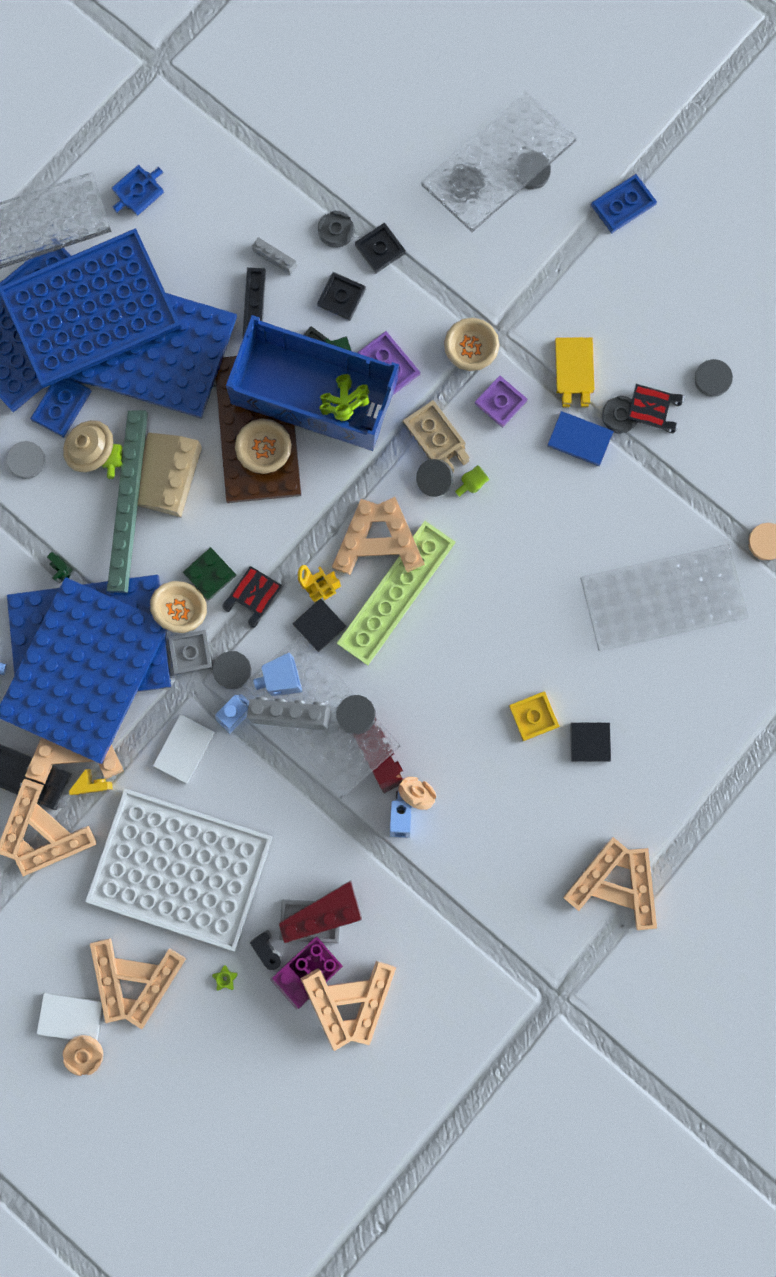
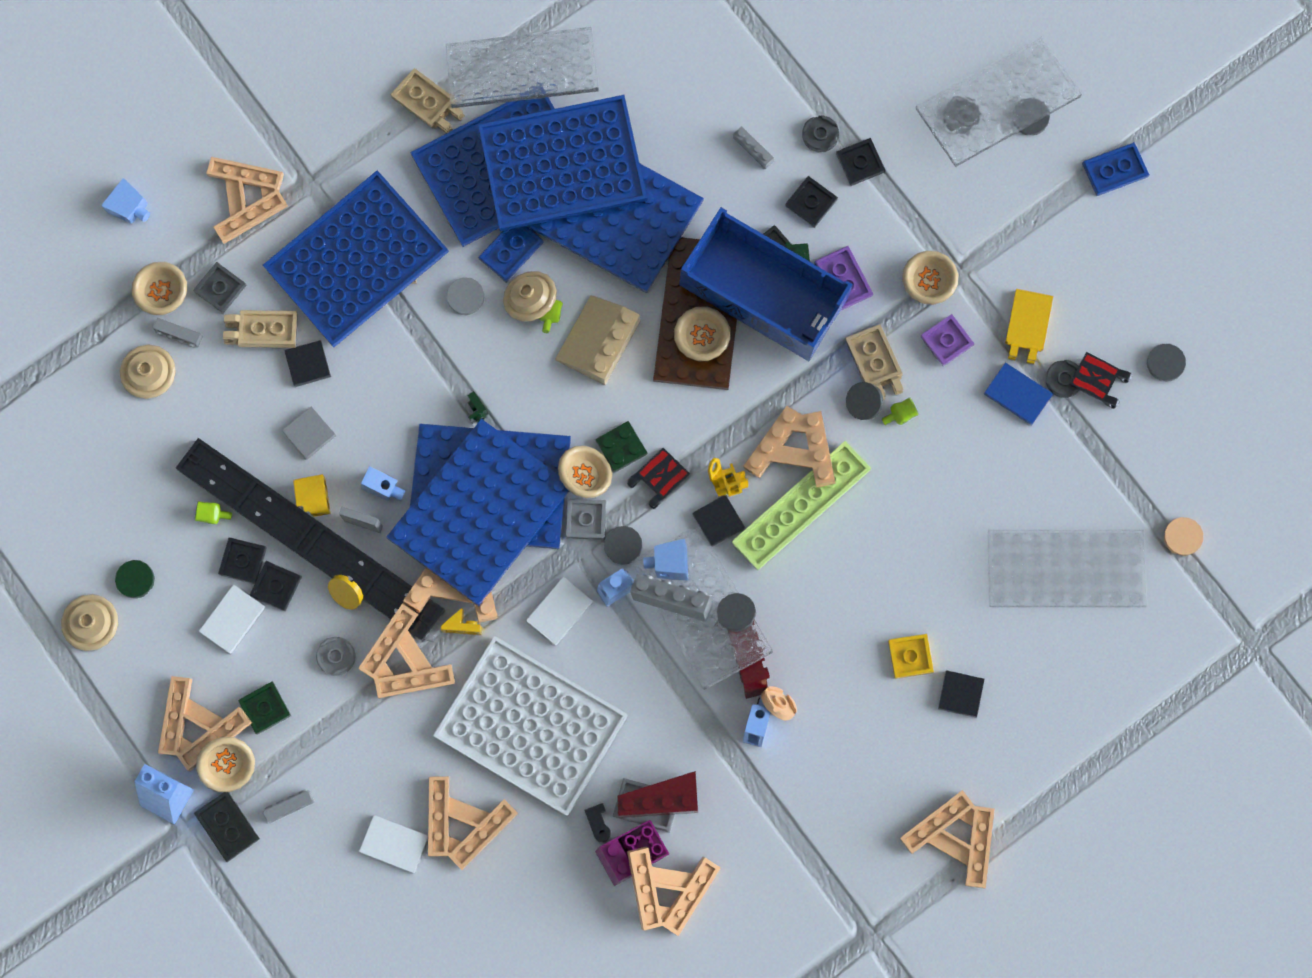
camera: 15 degrees right, 5 degrees down
(82, 1055) = (399, 882): light nougat tile -> none
(127, 502) = (556, 358): sand green plate -> none
(137, 190) = (632, 54): blue plate -> none
(221, 983) = (546, 841): lime plate -> none
(254, 295) = (724, 186): black plate -> none
(344, 409) = (788, 317): lime plant -> none

